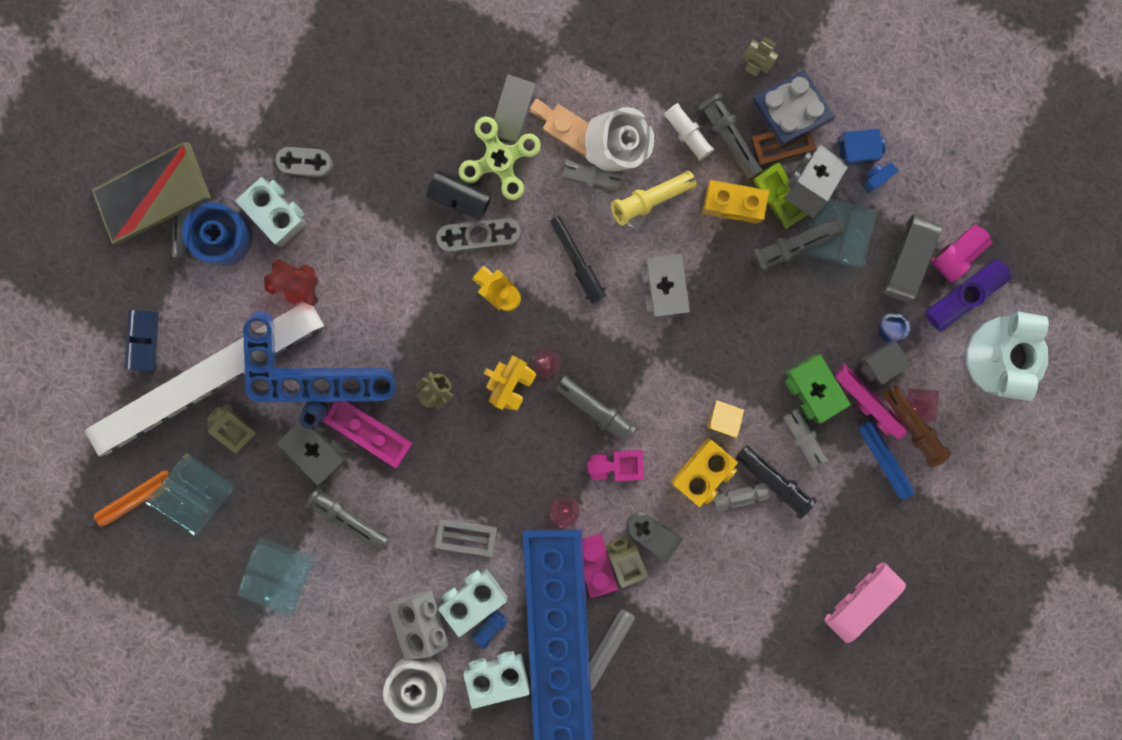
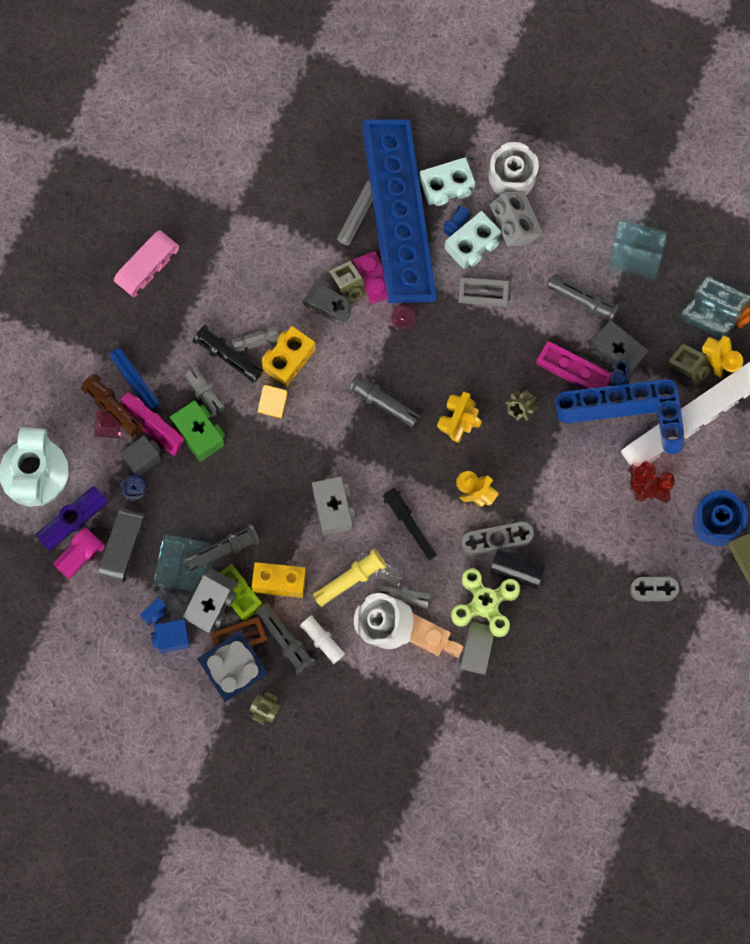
camera: 175 degrees right, 15 degrees down
(189, 431) = (721, 356): none -> yellow hips
(268, 216) = (681, 538): light aqua brick -> none
(546, 362) = (428, 437): clear pink tile -> none
(625, 464) = (354, 357): dark pink plate -> none

